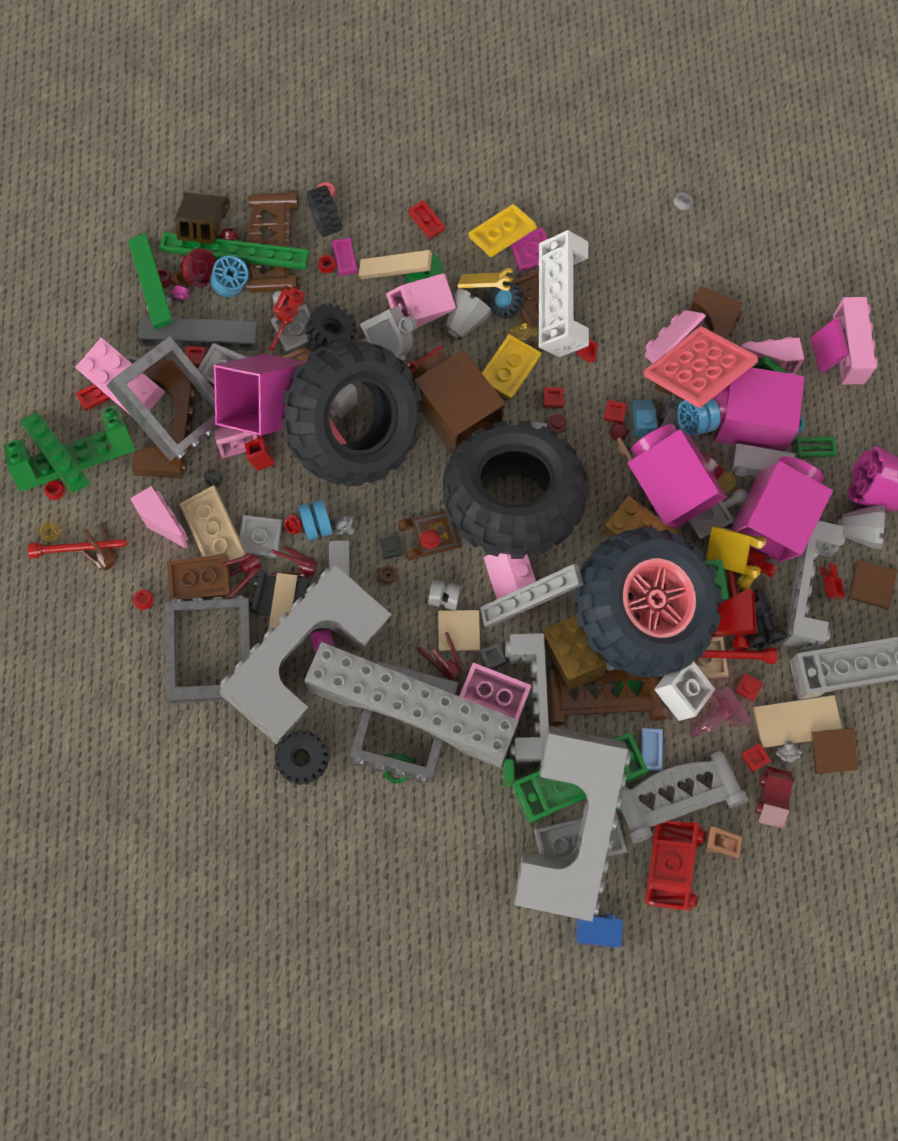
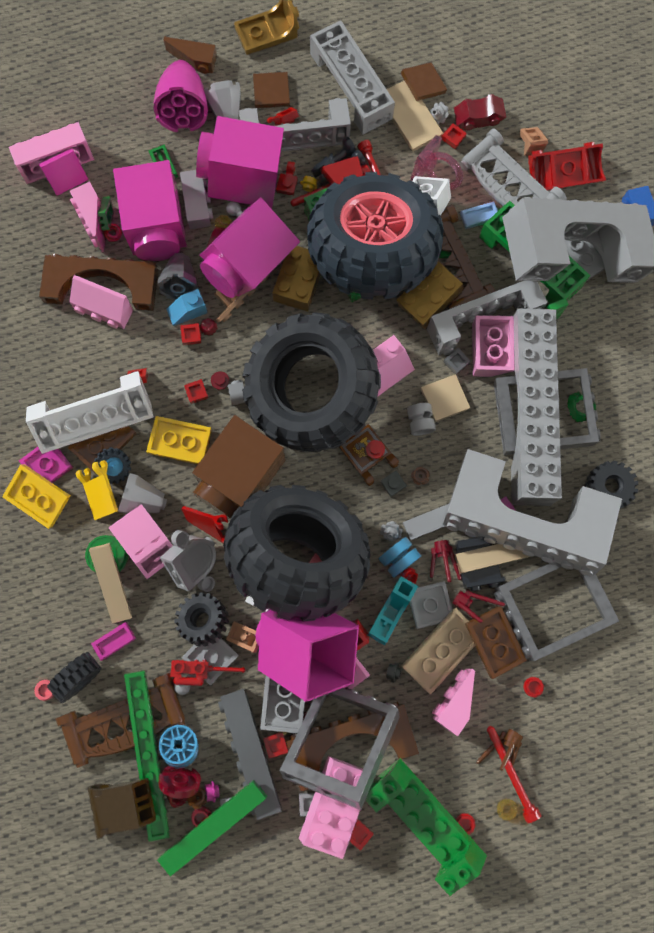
camera: 110 degrees left, 5 degrees up
(54, 452) = (436, 838): green plate -> none
(228, 234) = (129, 769): dark red plate -> none
(267, 495) = (392, 610): none -> teal arch
(326, 259) = (122, 655): red plate -> none
(426, 220) = (46, 575): red plate -> none
(448, 669) = (482, 392): dark red plant -> none
(523, 331) = (139, 438): clear yellow plate -> none
(532, 595) = (403, 334): light grey plate -> none
(698, 420) = (180, 249): dark azure wheel -> none
(700, 366) = (134, 257): coral plate -> none
(734, 550) = (290, 195): yellow flag -> none
(748, 687) = (397, 158): red plate -> none

